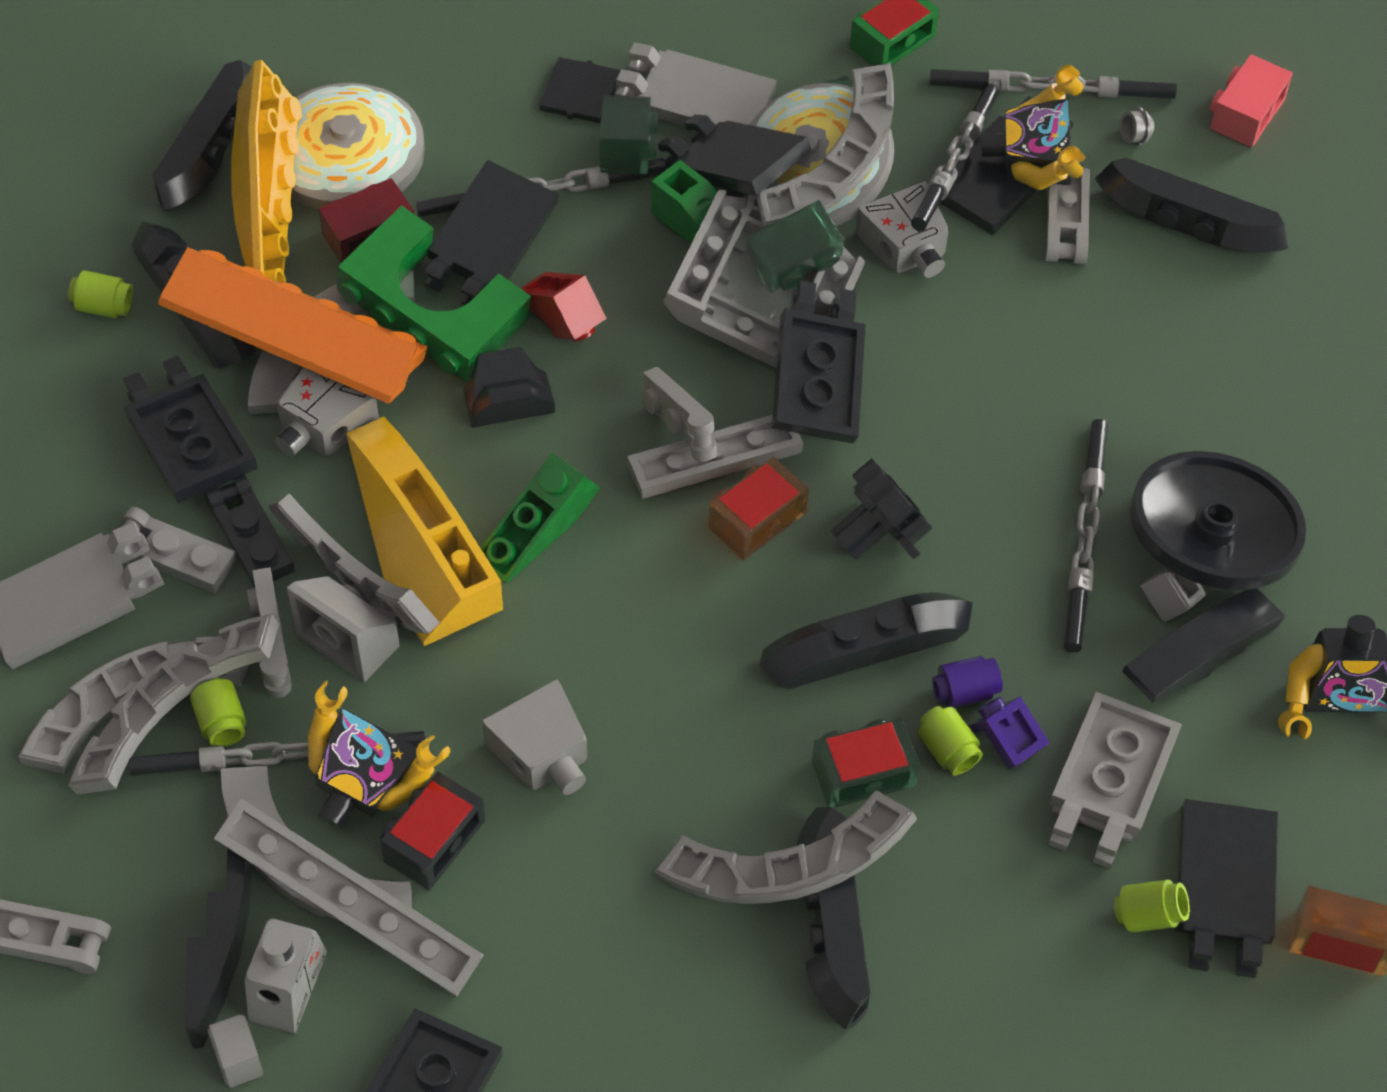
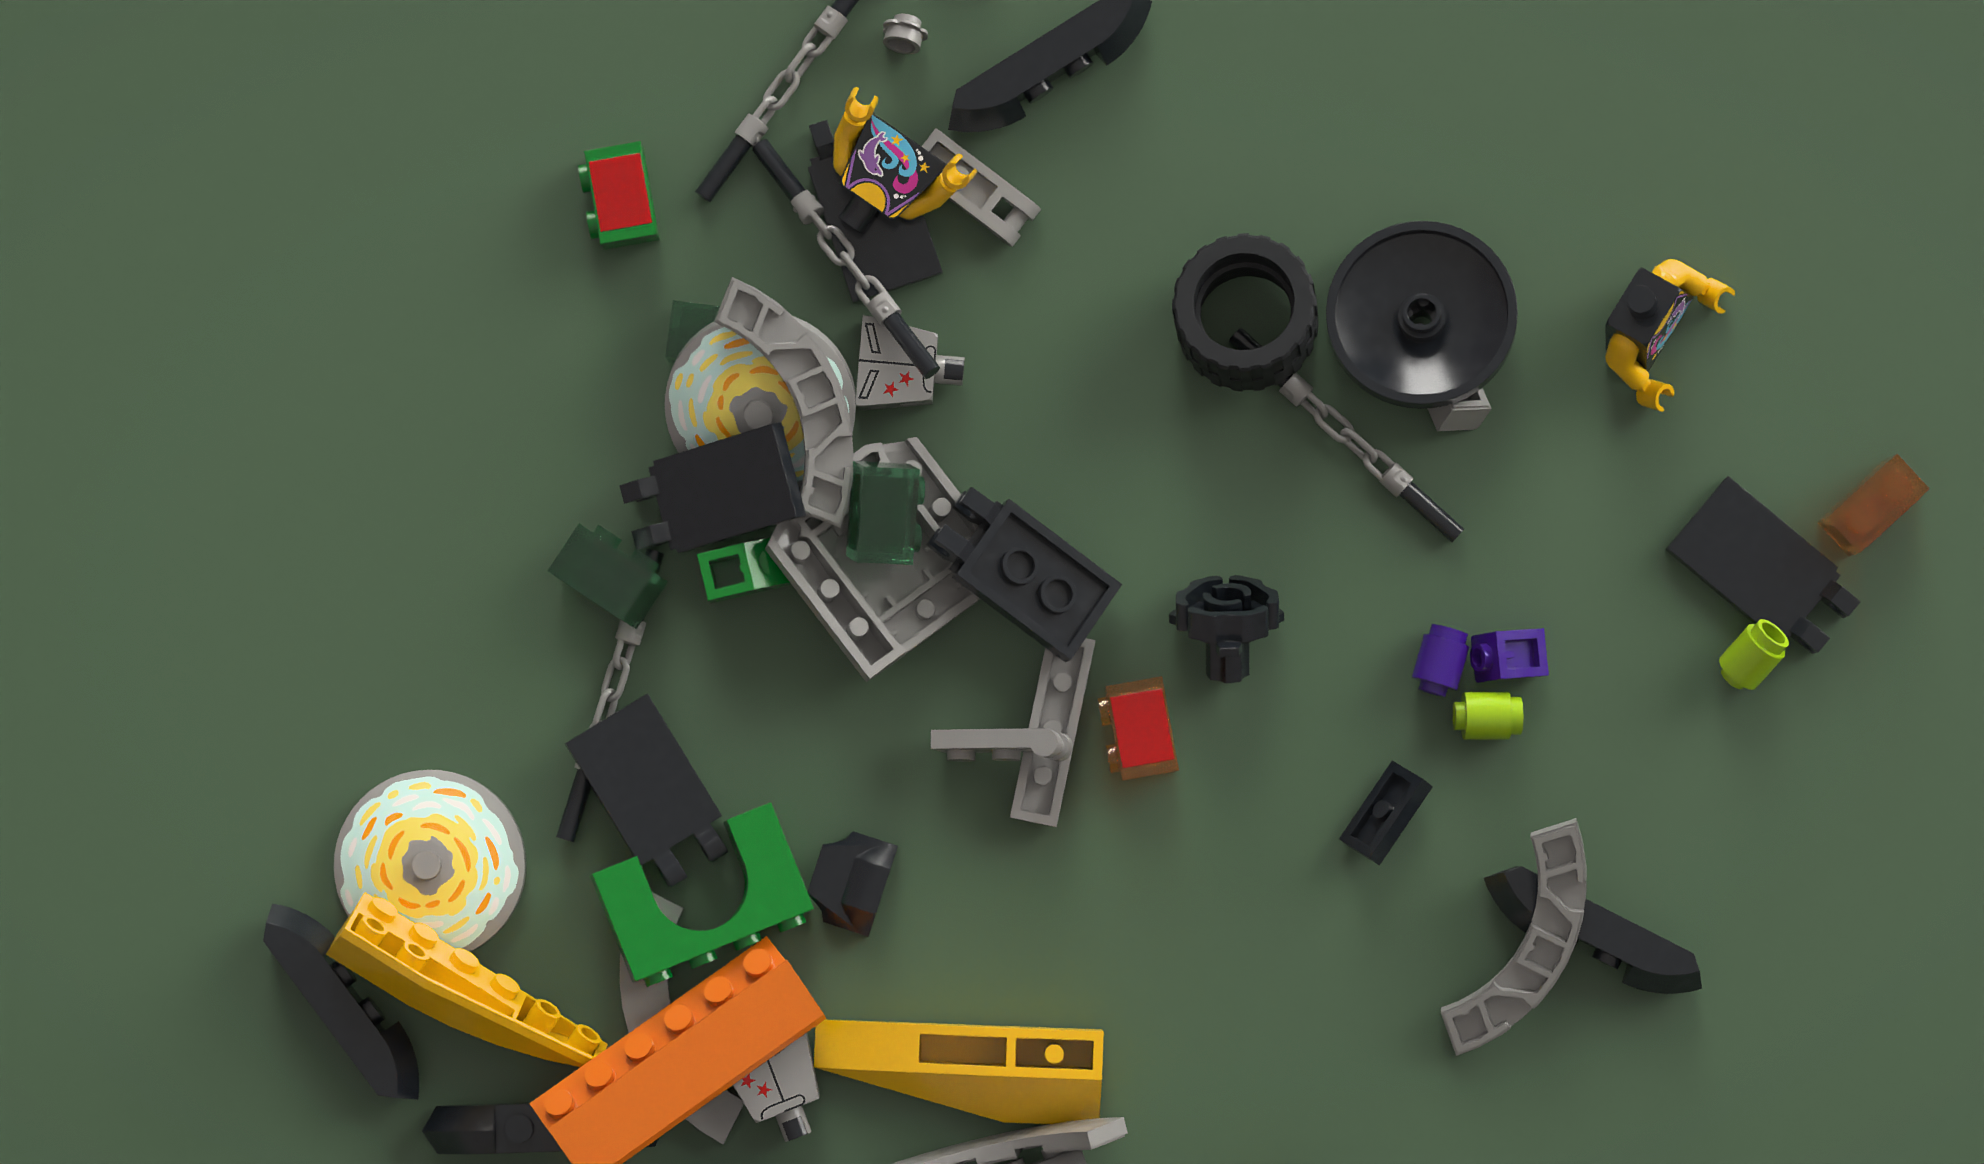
camera: 60 degrees left, 30 degrees up
(355, 217) = (557, 903): dark red brick -> none
(538, 516) = (1026, 942): green slope -> none
(540, 739) = (1271, 1079): light grey torso -> none
(565, 304) = (784, 771): red arch -> none
(578, 89) = (494, 573): black piece -> none
(691, 86) = (582, 454): light grey tile -> none
(834, 710) = (1385, 812): none -> black plate
(865, 638) = (1337, 718): black brick -> none
(865, 760) = (1464, 806): brick -> none
(1112, 774) = (1603, 591): light grey tile -> none
(1114, 431) = (1236, 258): none -> black tyre
(1202, 643) = (1534, 423): black slope -> none

